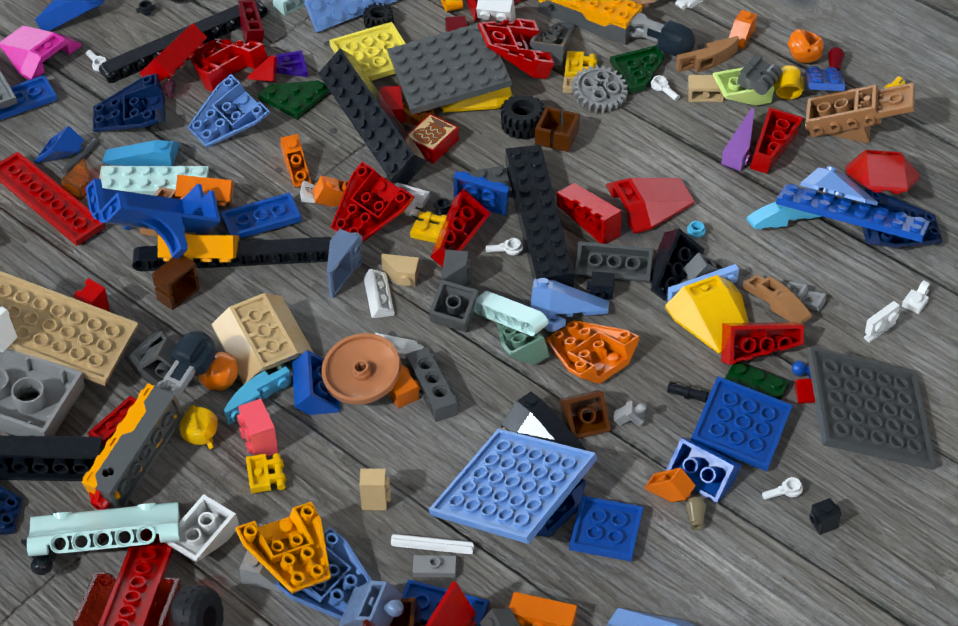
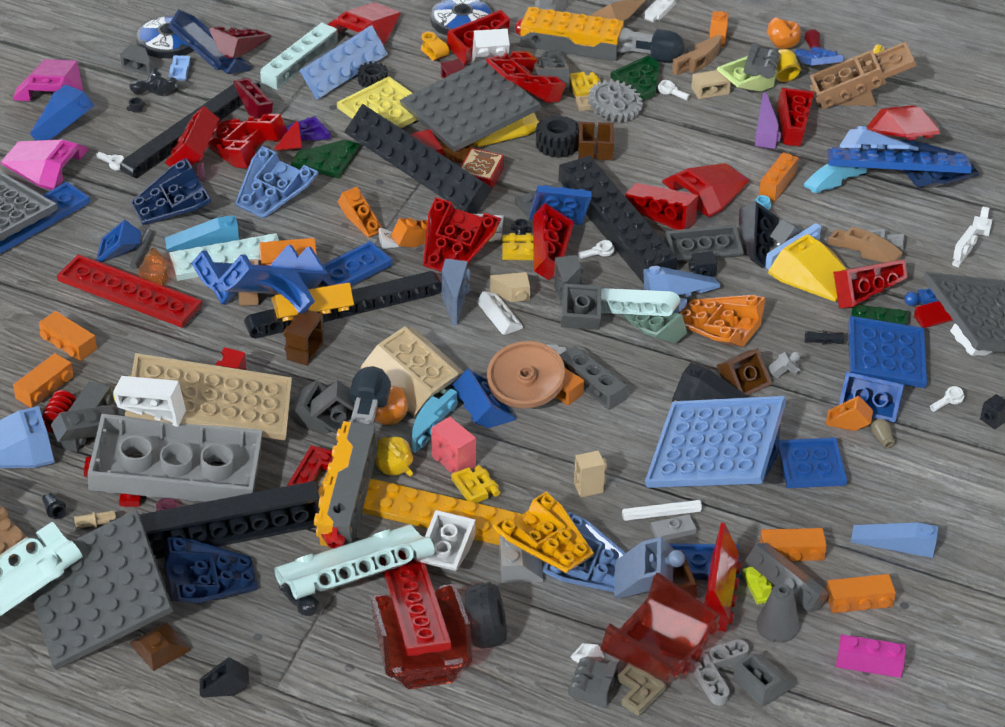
camera: 20 degrees left, 5 degrees down
(194, 478) = (419, 506): none -> light orange plate
(724, 204) = (778, 176): none -> orange brick

